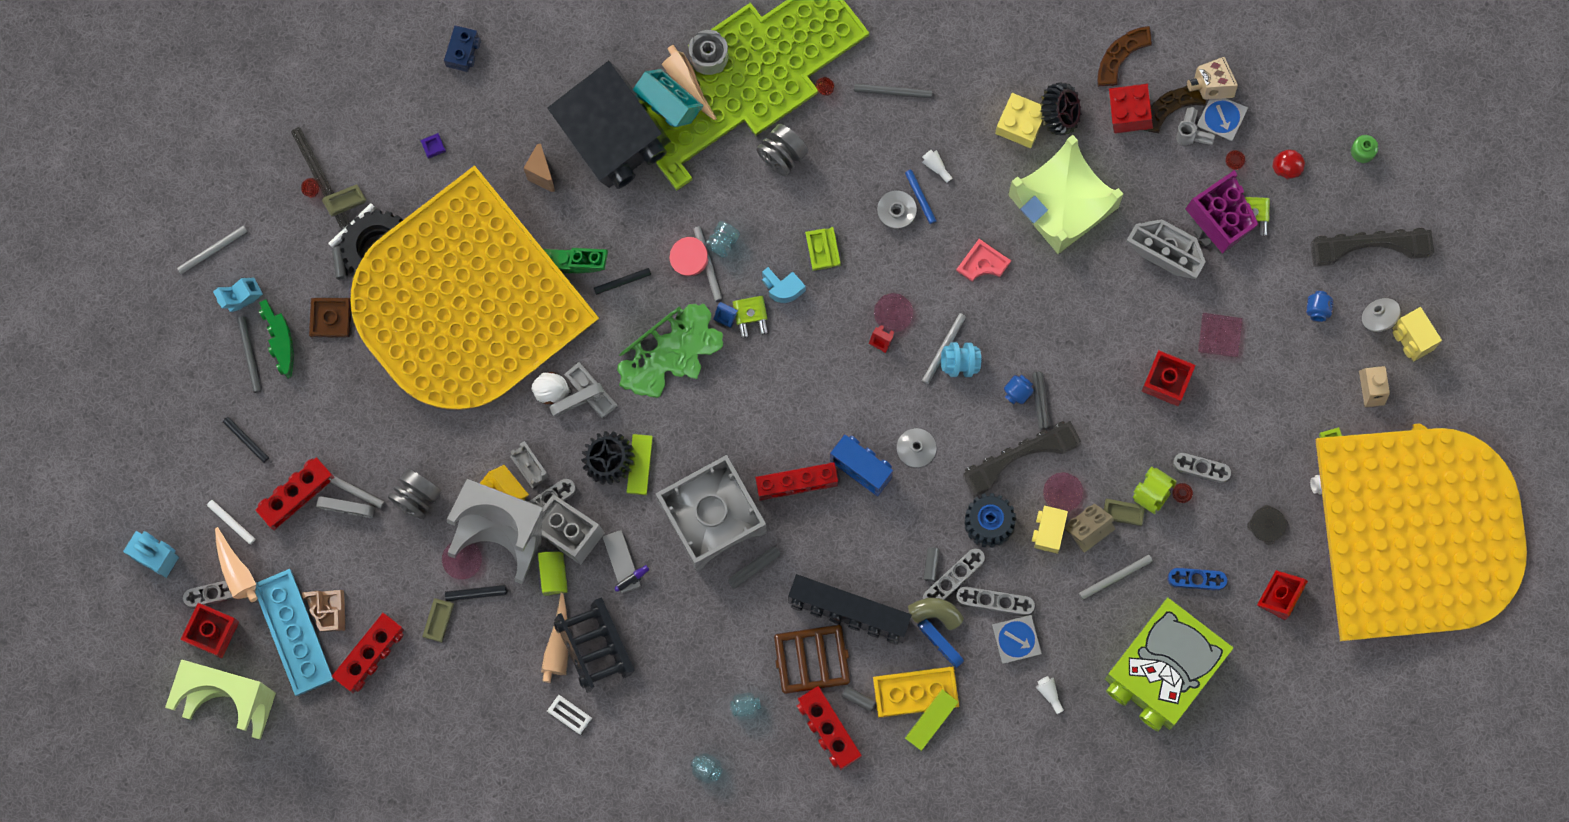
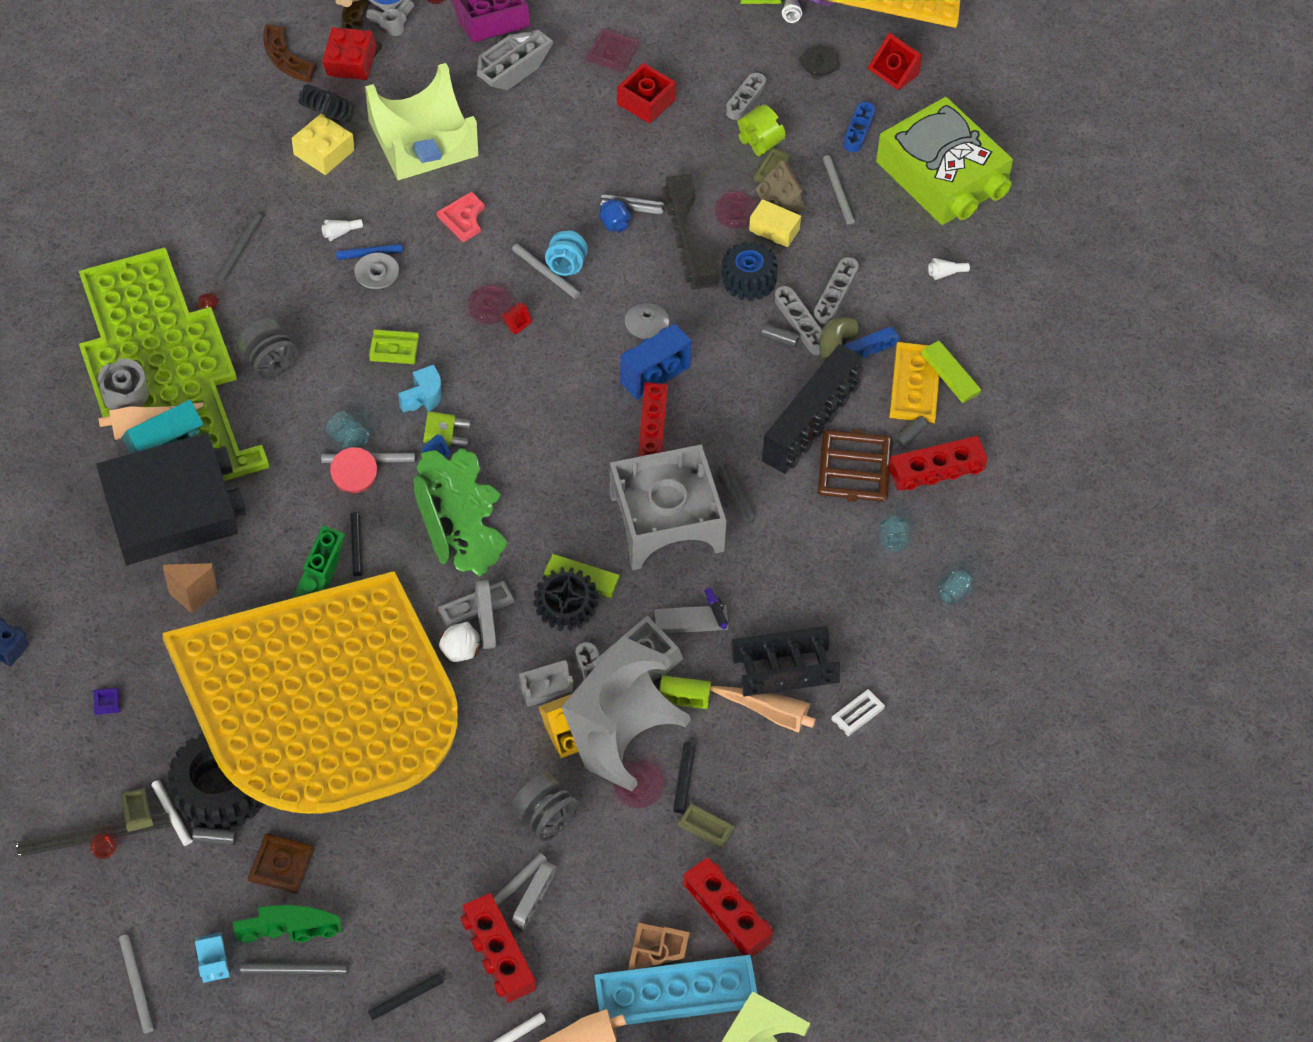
camera: 80 degrees left, 20 degrees down
(1016, 639) = (883, 280): piece -> none

